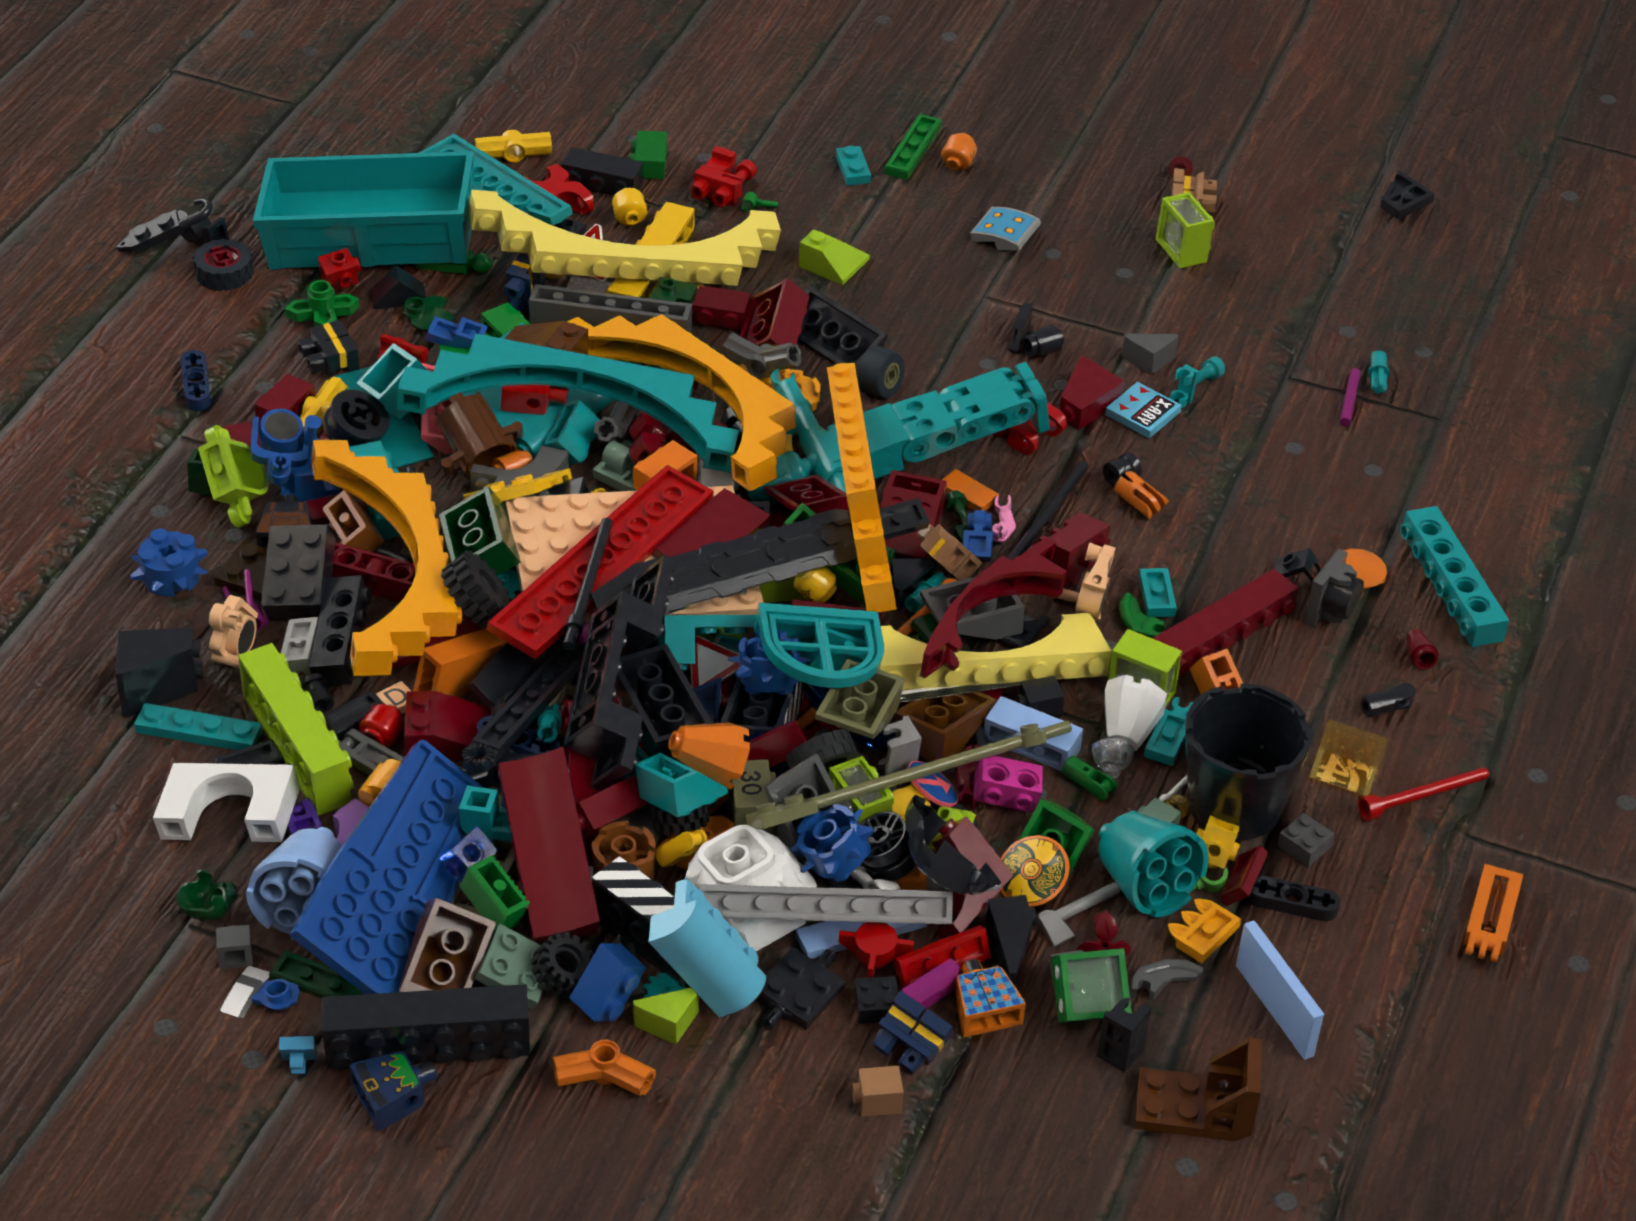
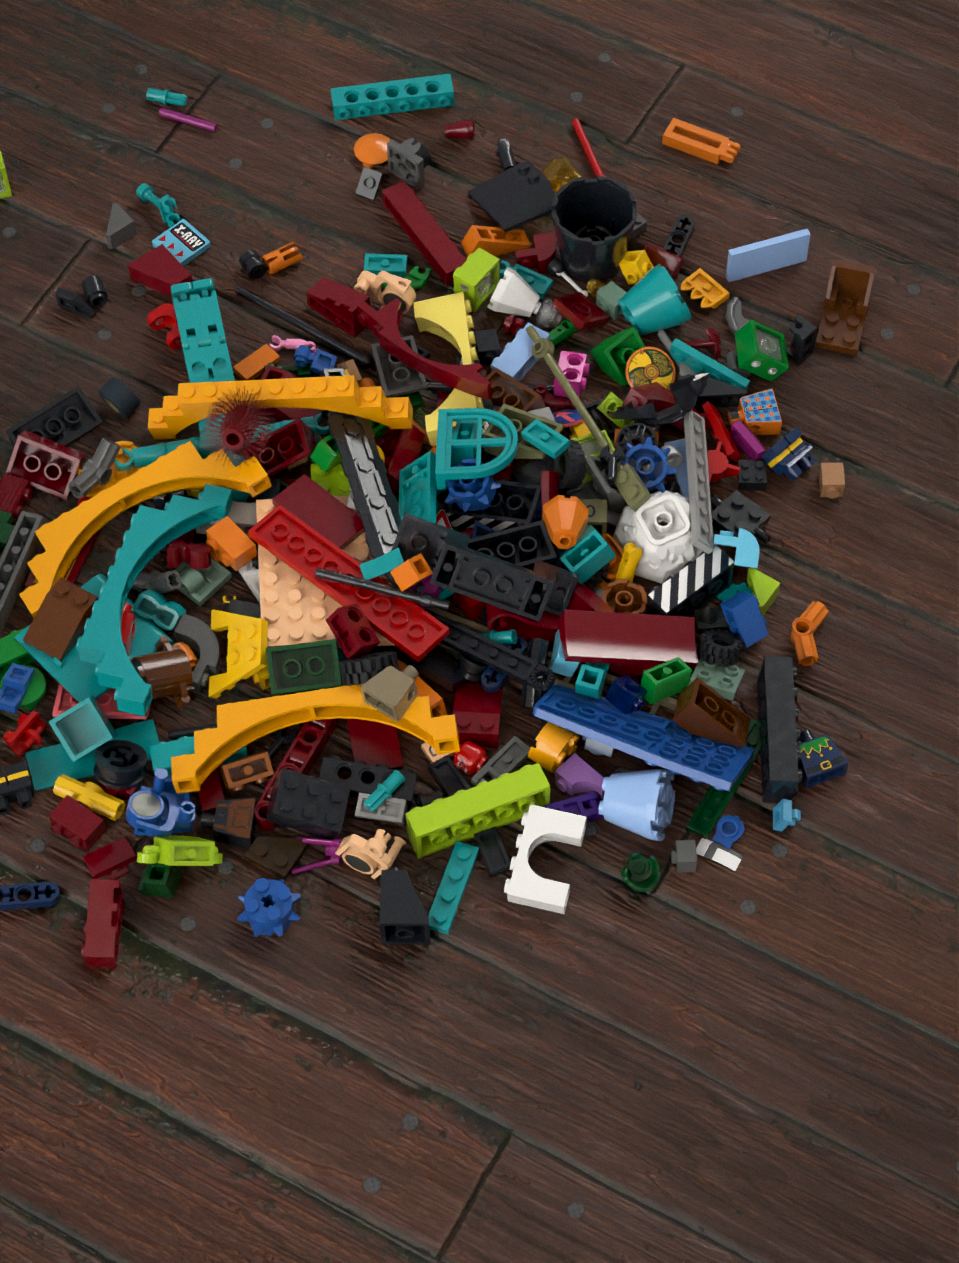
camera: 80 degrees left, 15 degrees up
(150, 433) = (103, 923): none -> dark red wedge
(314, 632) = (384, 791): none -> teal axle
(423, 592) = (391, 691): none -> dark tan torso
(516, 554) = (352, 631): none -> dark red brick
(601, 590) = (411, 572): none -> orange brick
(618, 572) = (381, 564): none -> teal sticker
(795, 416) = (238, 427): none -> dark red piece
(831, 787) = (605, 456): none -> black bar
(836, 707) = (545, 438): none -> teal plate
(1056, 926) = (703, 364): none -> teal plate
(1086, 719) = (511, 324): none -> dark red plate
(1121, 784) = (580, 311): none -> dark red plate
(1322, 698) = (515, 196): none -> black slope

